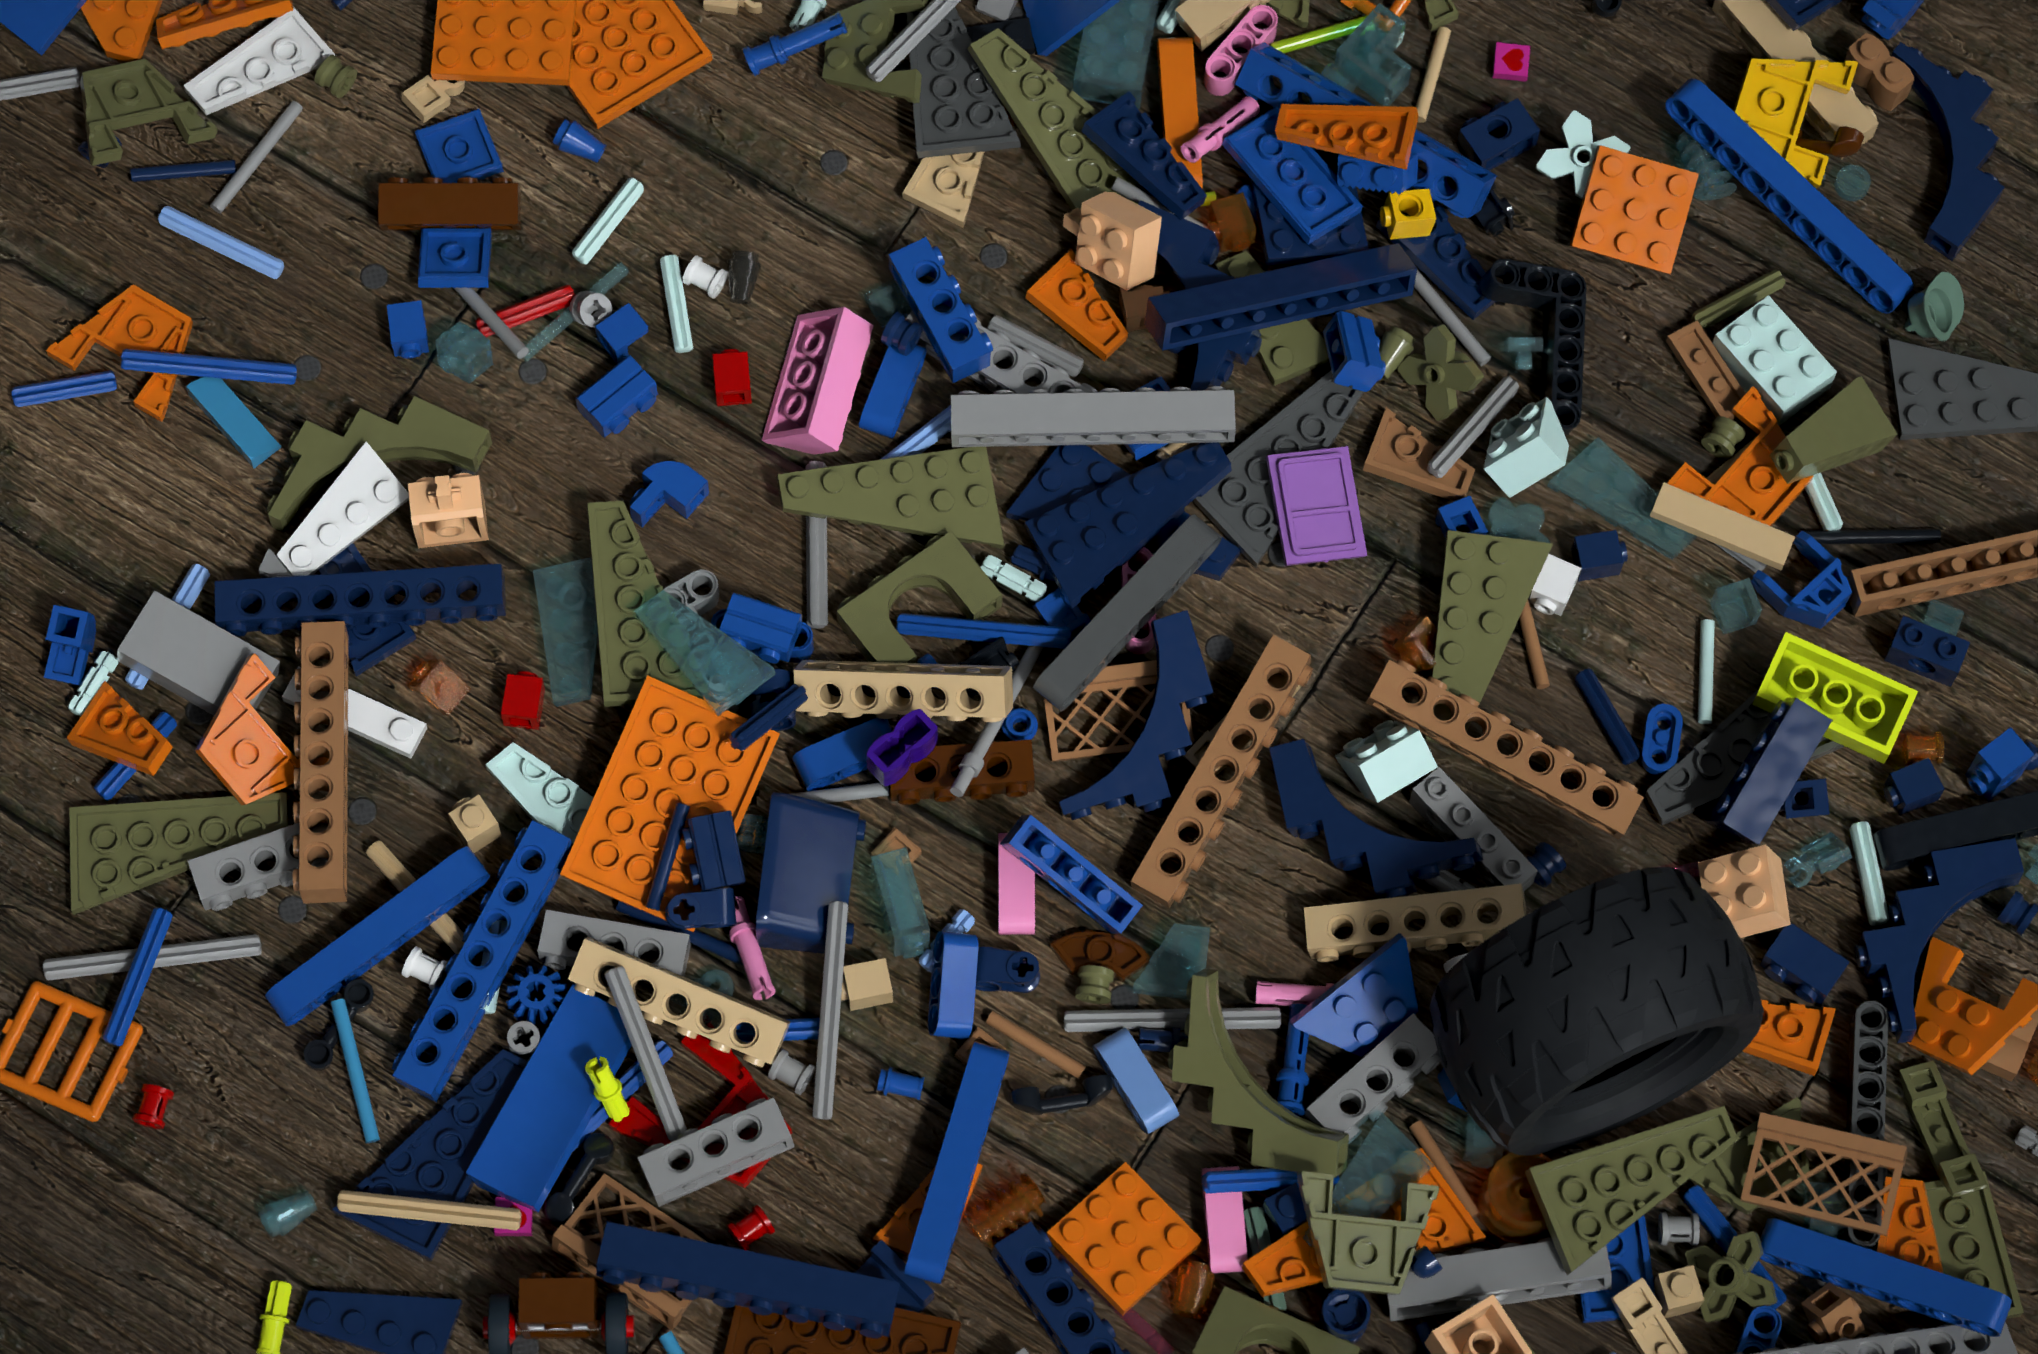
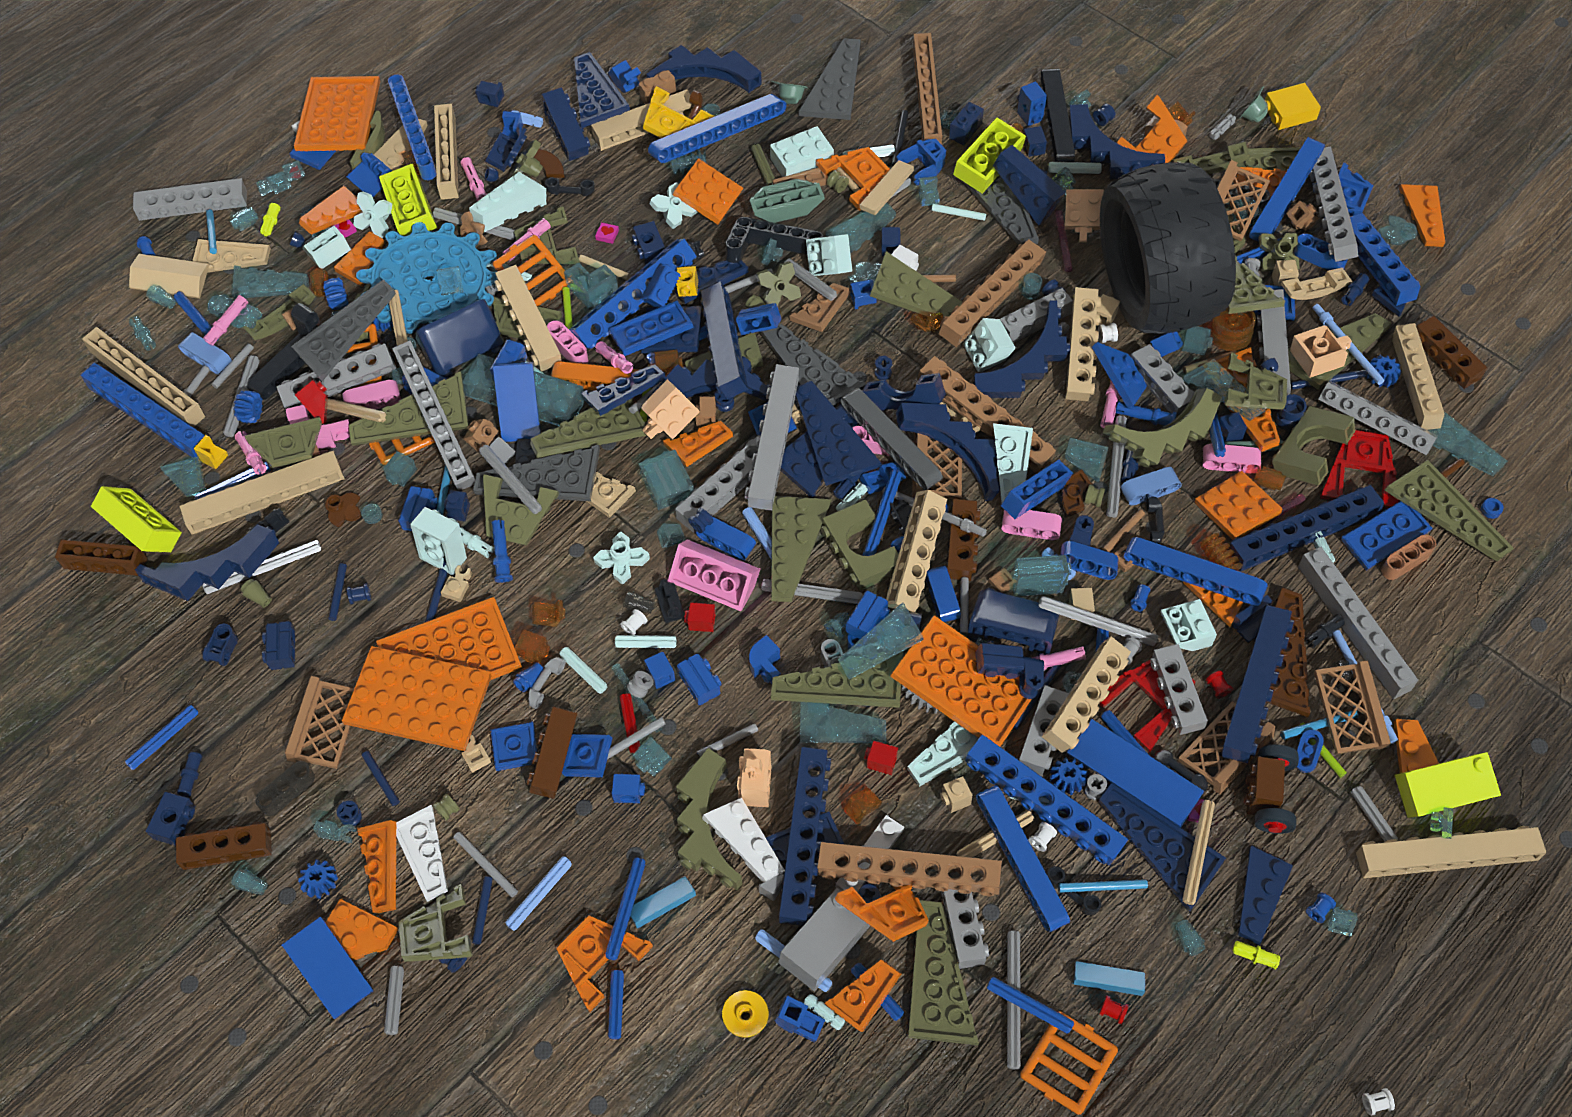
camera: 75 degrees left, 10 degrees down
(67, 555) = (741, 1003): none -> yellow dish
(205, 1097) = (1109, 978): none -> dark azure slope
(284, 725) = (869, 889): none -> dark blue wheel
(520, 465) = (730, 739): none -> light grey bar
(544, 158) = (555, 666): none -> light grey bar
(607, 1088) = (1136, 738): neon yellow axle -> none
(631, 133) = (532, 647): none -> clear orange brick
(646, 1052) = (1120, 713): light grey axle -> none
(667, 856) = (997, 687): dark blue bar -> none
(696, 142) = (548, 614): none -> clear orange bracket
(756, 325) = (669, 601): none -> black hinge
(758, 589) = (837, 623): none -> clear light blue tile
(768, 717) = (926, 617): dark blue axle -> none
(824, 232) = (621, 557): none -> light aqua plant
(850, 1163) = (1189, 625): none -> light aqua slope
(895, 751) = (954, 553): dark purple brick -> none
(957, 358) = (686, 506): blue brick -> none
(994, 267) = (666, 479): none -> clear light blue brick
(1044, 349) = (725, 457): light grey axle -> none
(1132, 827) = (1013, 455): none -> light aqua wing
(1225, 592) = (927, 391): none -> dark blue arch
(1293, 594) = (885, 367): none -> dark blue bush
(1316, 506) = (839, 353): medium lavender piece -> none
(1360, 132) = (640, 286): orange wing -> none
(1547, 815) = (1031, 286): none -> clear light blue wheel
(1607, 716) = (976, 254): dark blue axle -> none
(1645, 346) = (786, 200): none -> sand green wedge
(1661, 741) = (993, 233): blue plate -> none
(1835, 435) = (848, 134): olive slope -> none

